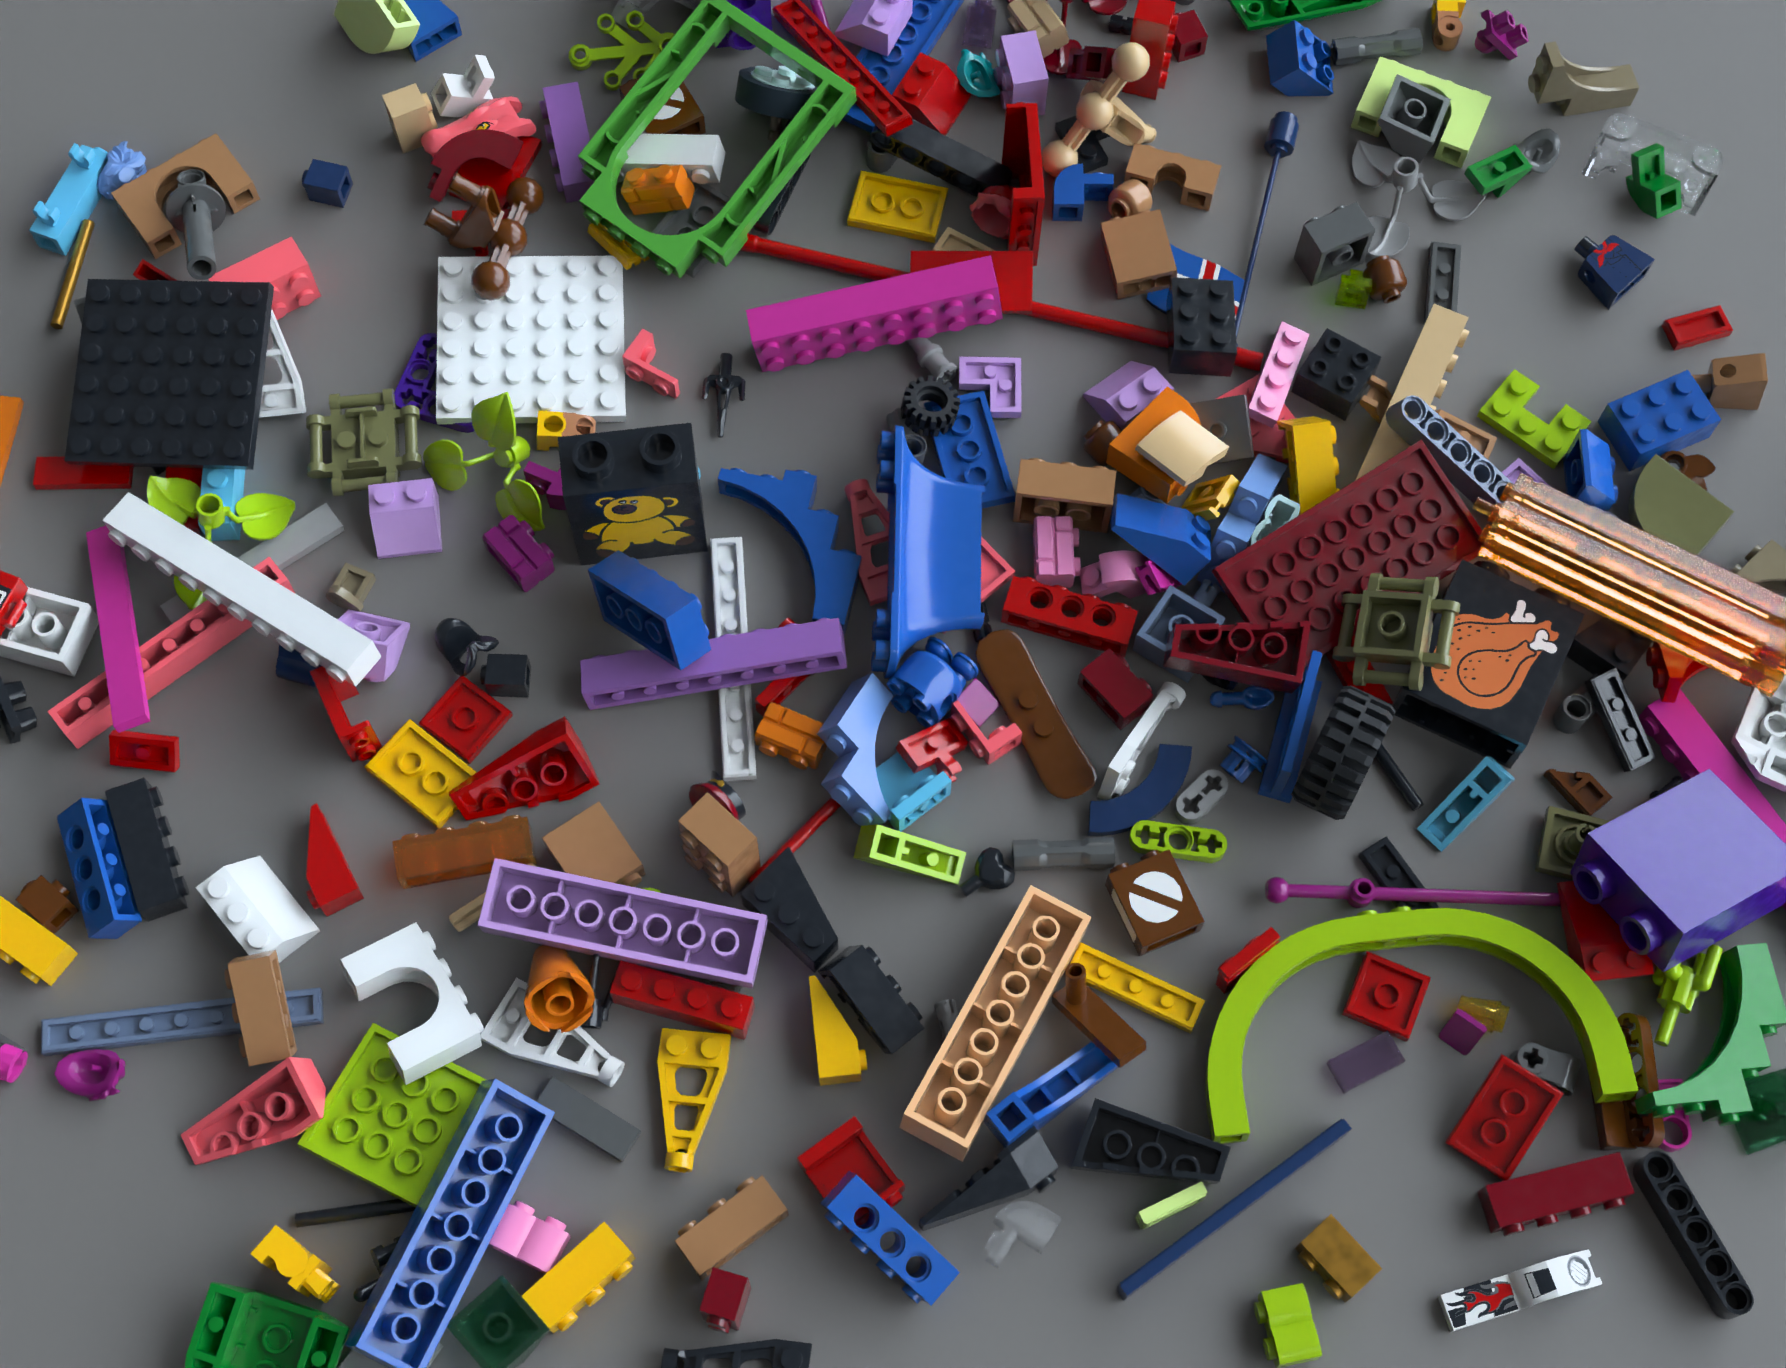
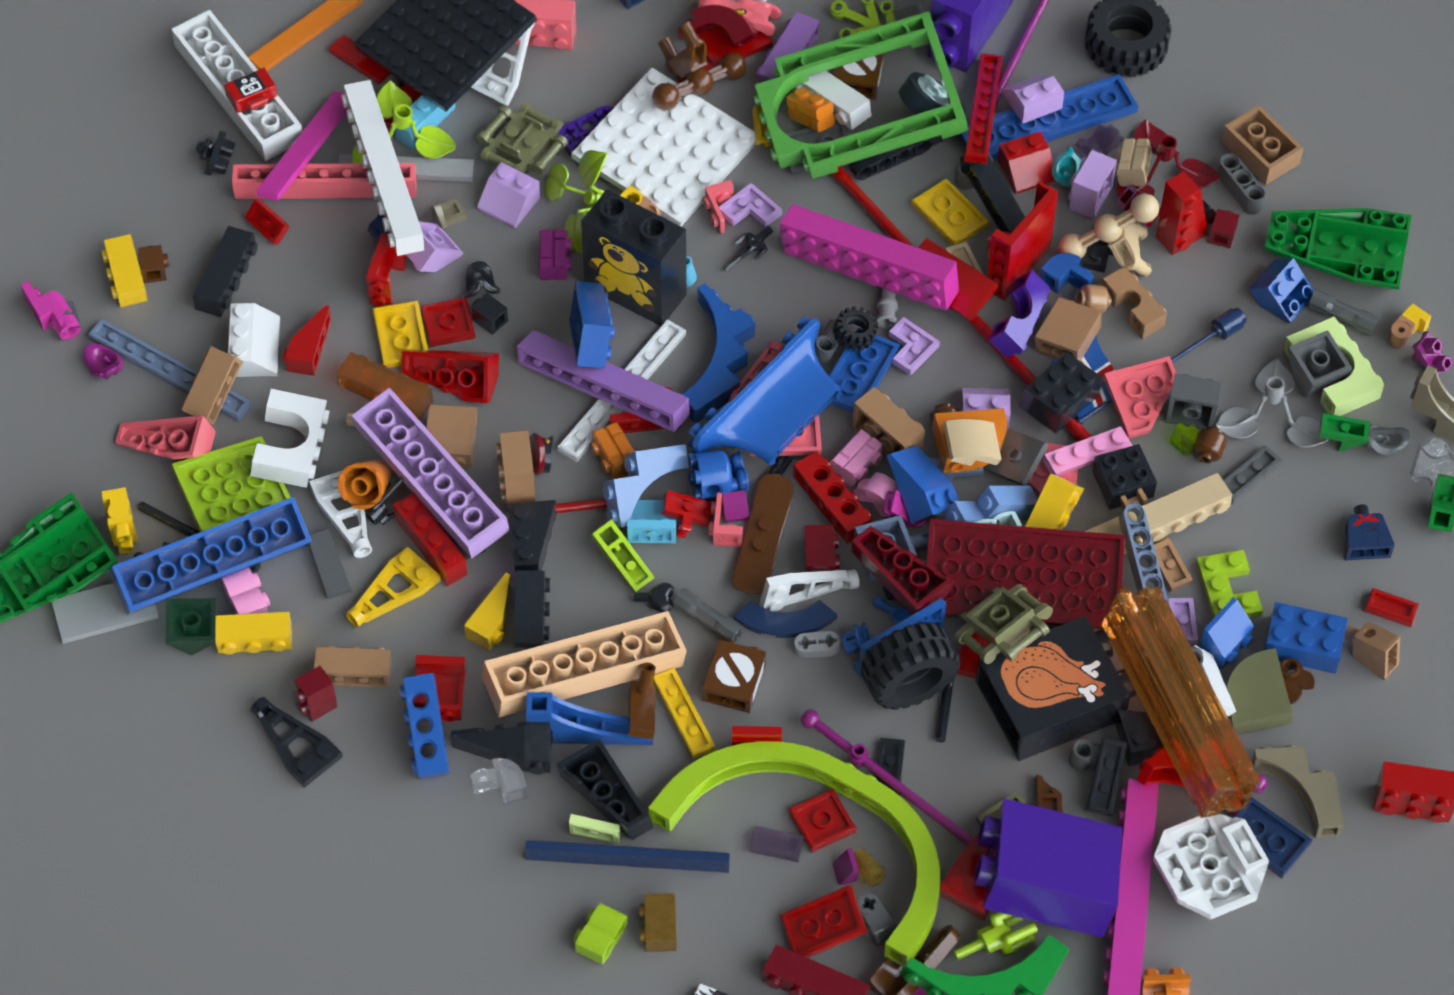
camera: 40 degrees right, 10 degrees down
(98, 869) = (191, 262): blue brick -> none
(682, 337) = (750, 201): none -> lavender plate
(1070, 244) = (1029, 297): none -> dark purple arch
(1189, 832) = (782, 668): lime beam -> none
(1210, 496) = (975, 489): yellow plate -> none
(1272, 272) = (1140, 393): none -> coral plate
(1466, 803) = (971, 754): medium azure slope -> none

